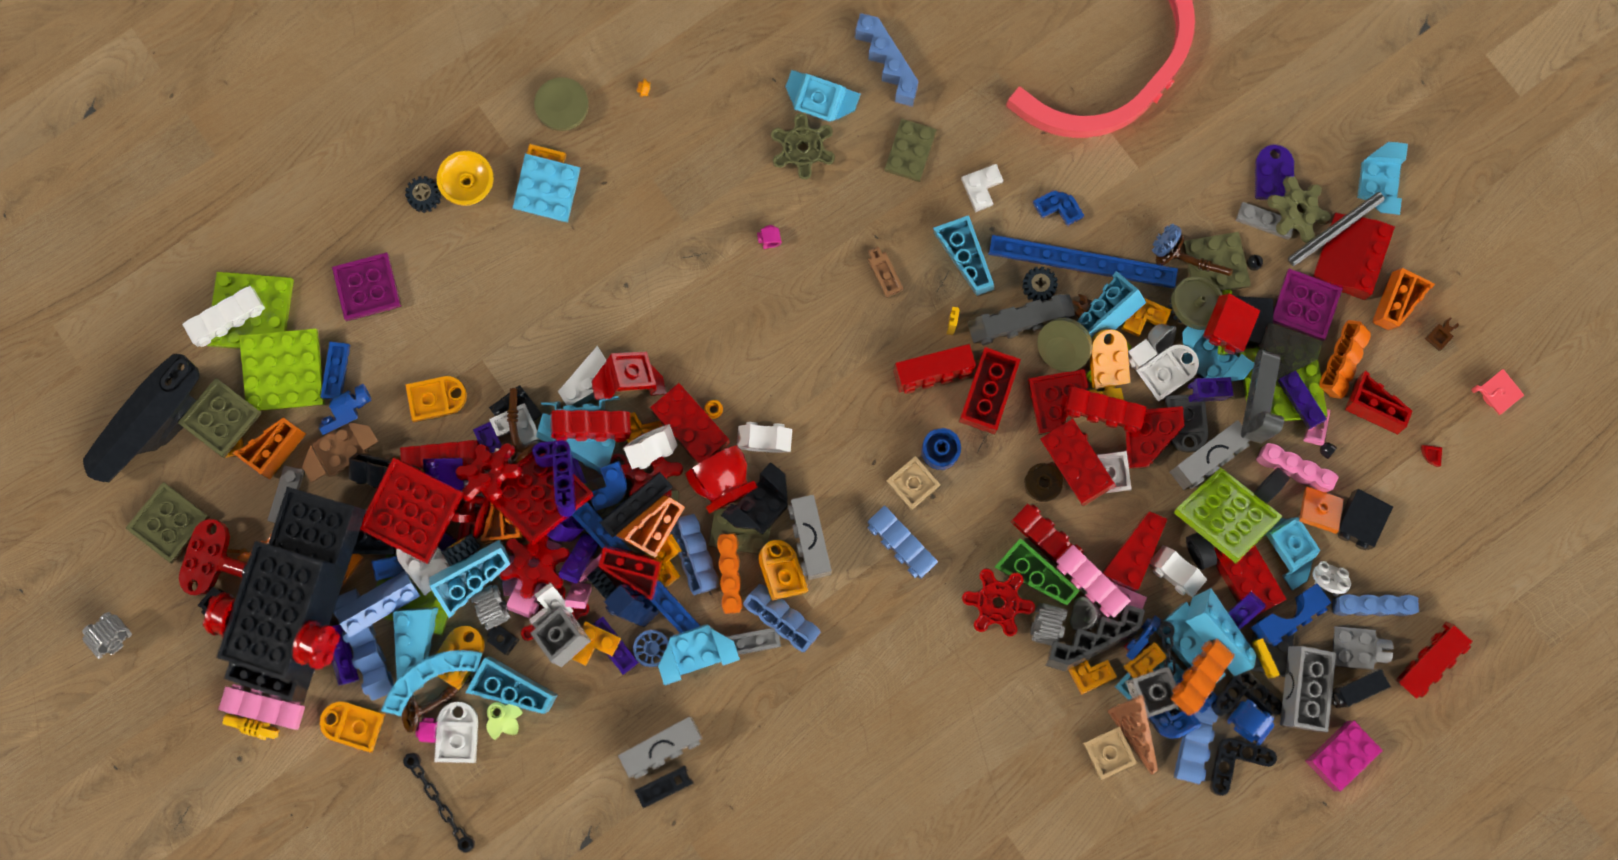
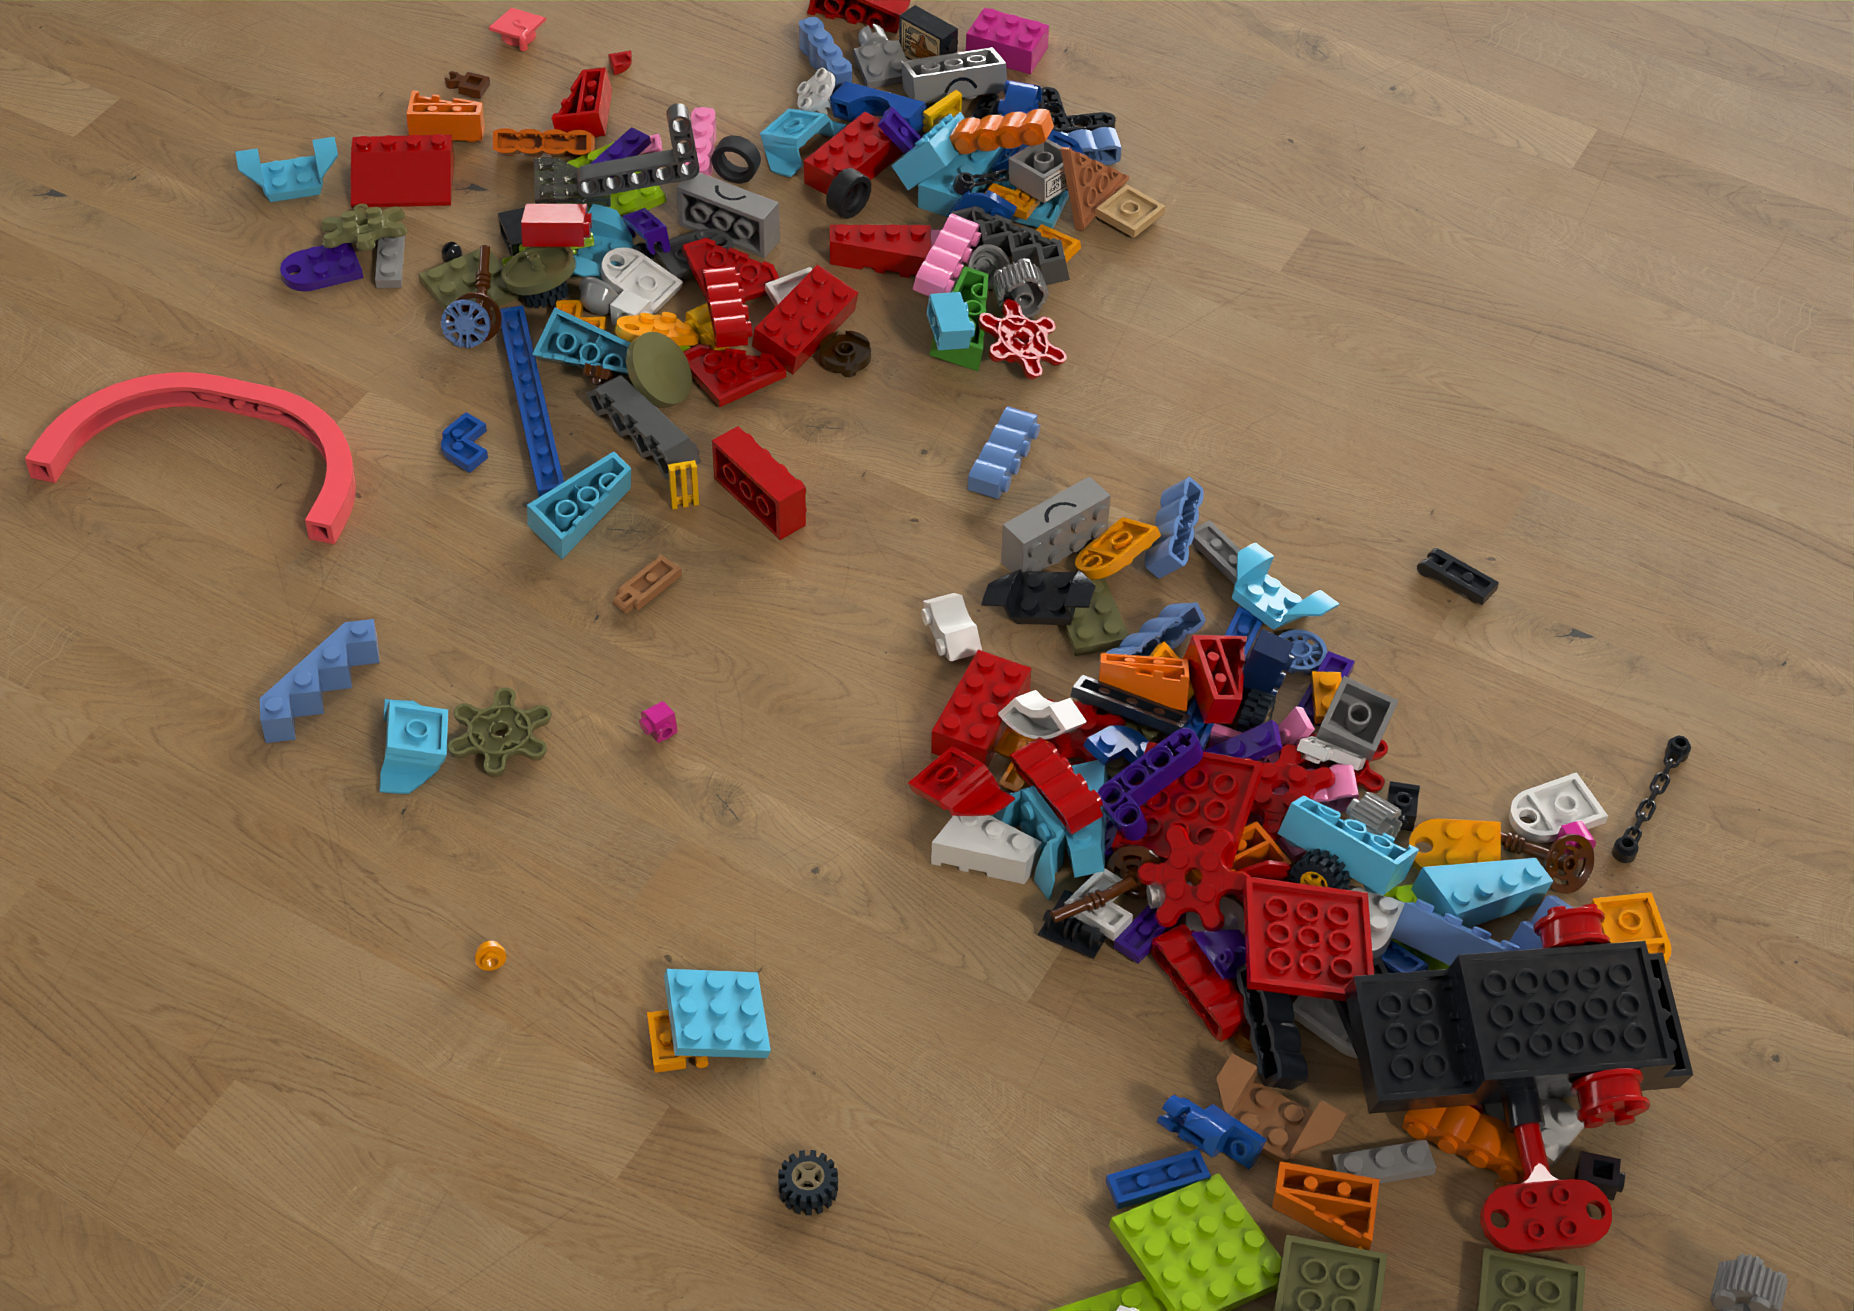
camera: 115 degrees left, 30 degrees down
(251, 726) = (1725, 1053): yellow hinge -> none
(261, 707) = (1711, 1082): bright pink brick -> none
(366, 286) = (1001, 1196): magenta plate -> none
(425, 670) = (1549, 863): medium azure tile -> none
(434, 398) = (1121, 1029): light orange plate -> none
(457, 170) = (752, 1108): yellow dish -> none
(504, 722) = (1499, 771): yellowish green plate -> none
(510, 687) = (1456, 770): medium azure wedge -> none
(561, 104) = (566, 1049): olive piece -> none
(660, 747) = (1415, 583): light grey brick -> none
(713, 403) = (939, 698): light orange plate -> none
(721, 478) = (1037, 632): red plate -> none
(730, 580) = (1151, 592): orange brick -> none
(910, 150) = (449, 618): olive plate -> none
(913, 483) = (920, 467): tan plate -> none
(946, 458) = (861, 448): blue brick -> none
(978, 183) = (472, 534): white plate -> none
(989, 390) = (774, 421): red brick -> none
(1020, 549) = (950, 321): none -> medium azure brick
(1033, 286) = (584, 429): black wheel -> none
(1042, 533) = (909, 335): red brick -> none
(1177, 571) = (886, 205): white brick -> none
(1228, 514) = (800, 171): lime plate -> none
(1306, 304) = (484, 192): magenta plate -> none
(1321, 510) = (740, 119): orange plate -> none
(1327, 449) = (663, 131): black hinge -> none
(1336, 228) = (376, 188): dark grey axle -> none
(1363, 519) = (732, 88): black brick -> none

